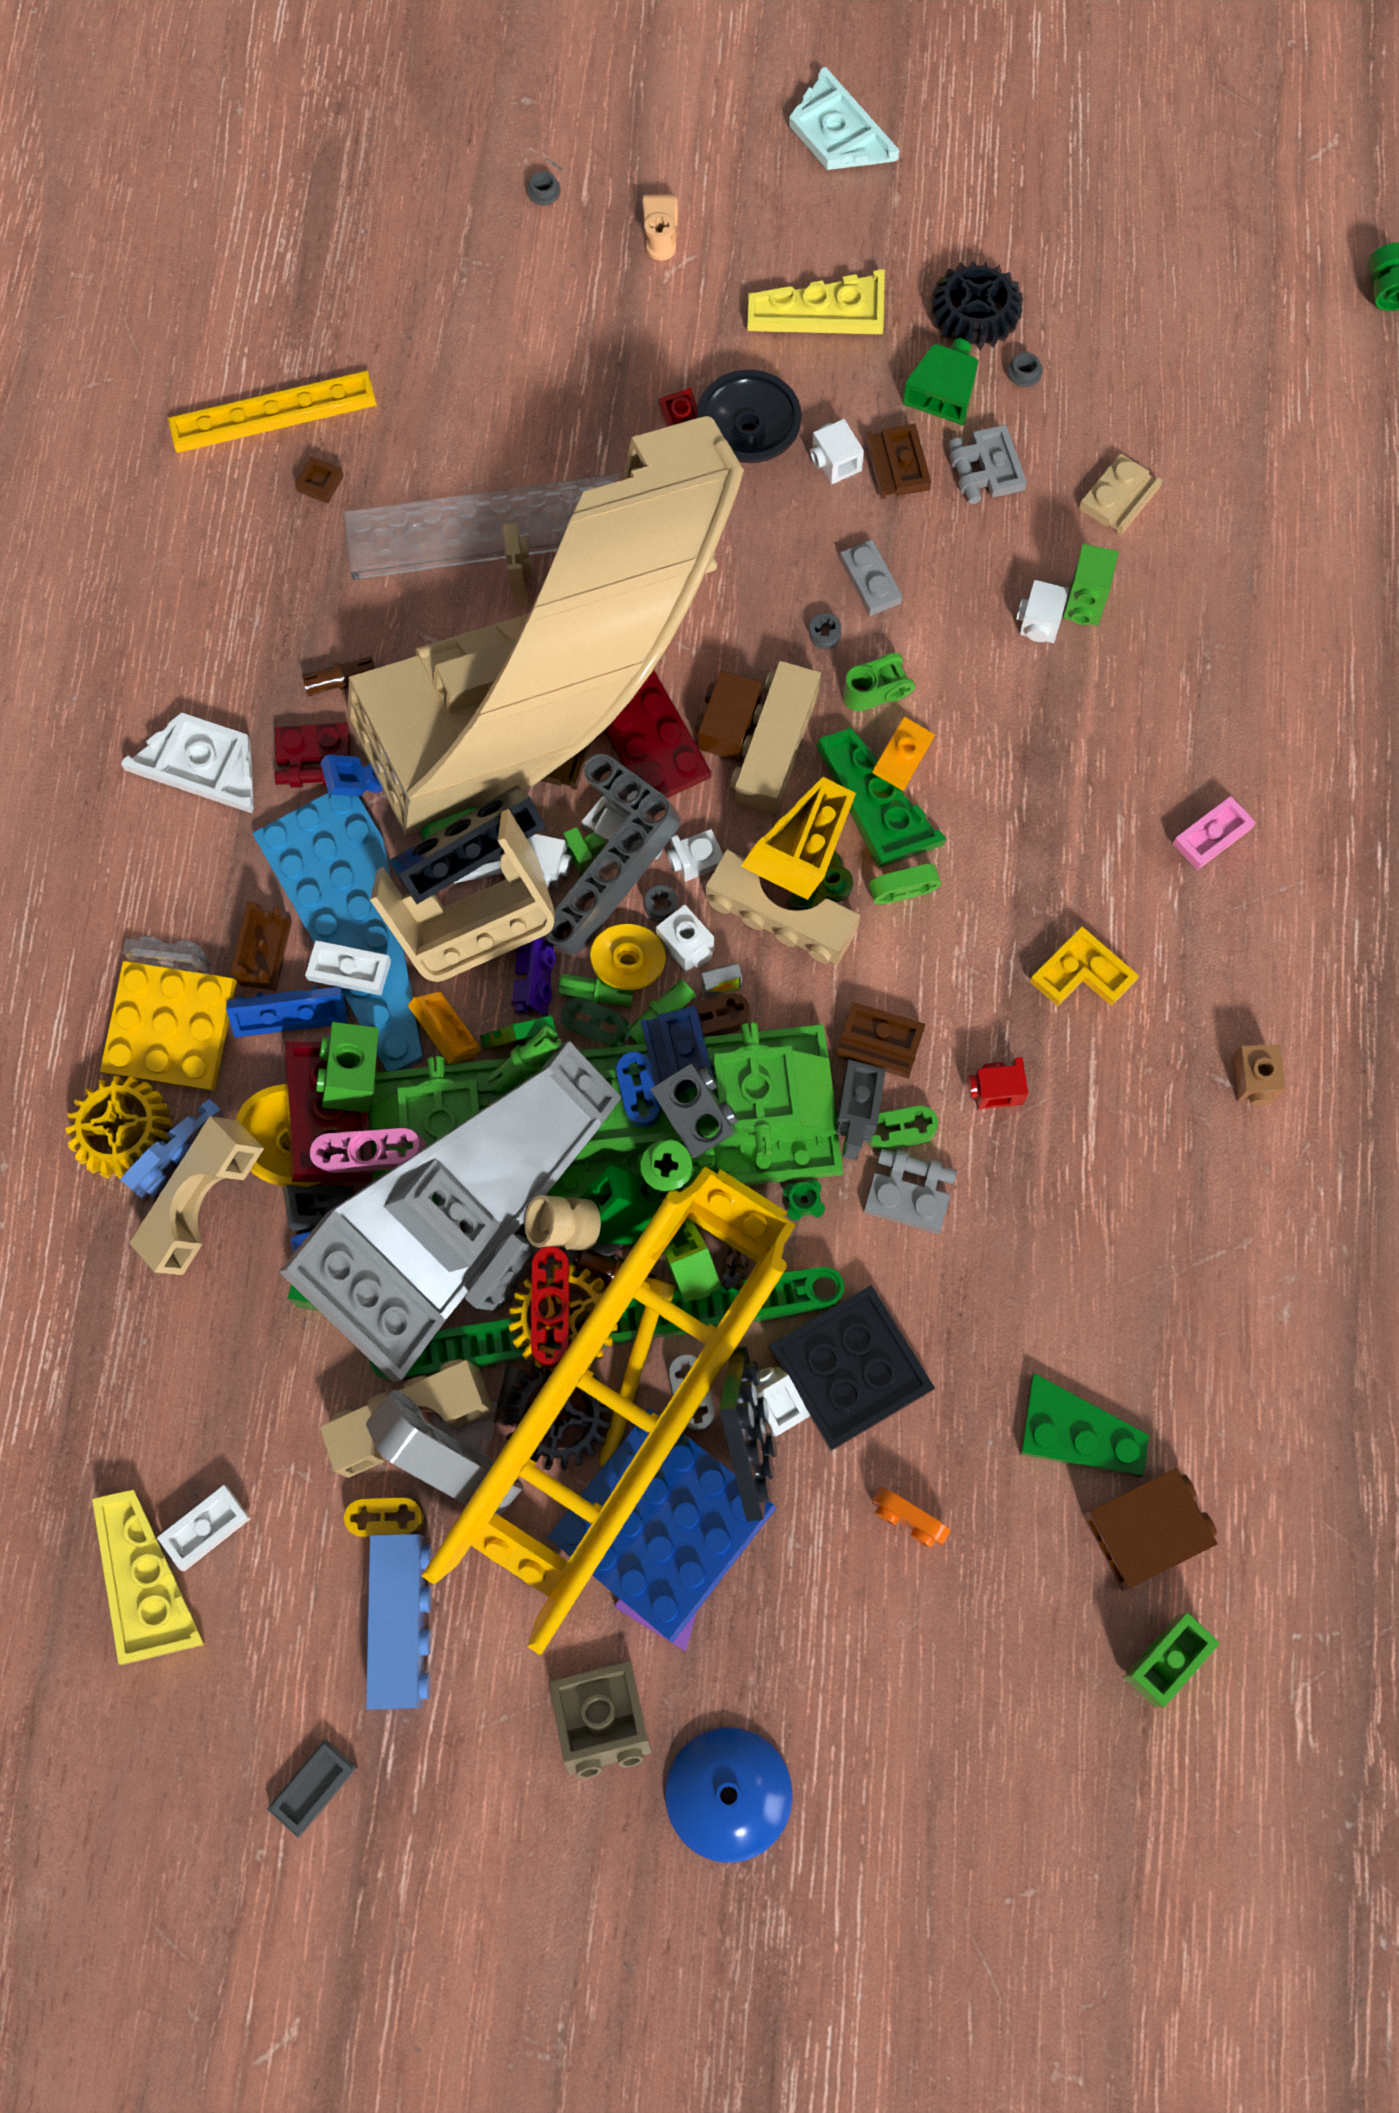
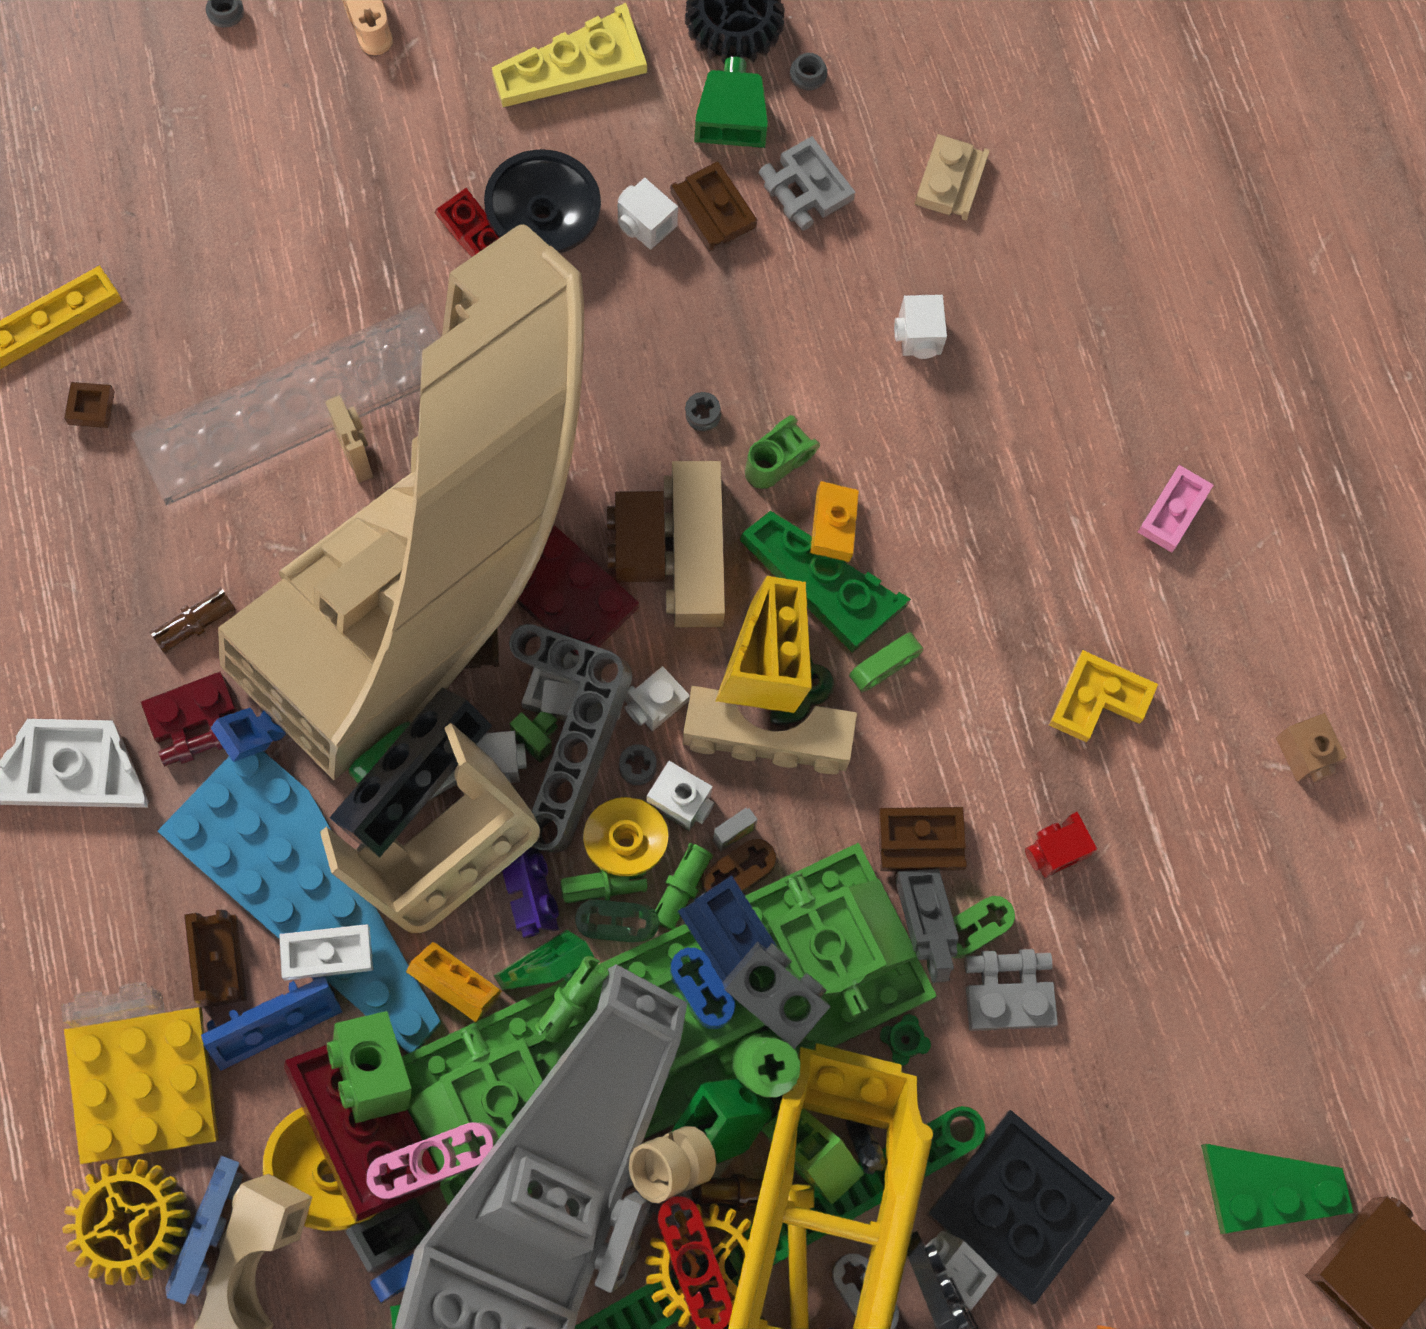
camera: 30 degrees left, 0 degrees up
(870, 577) = (729, 340): light grey plate -> none
(1090, 585) = (964, 283): bright green brick -> none

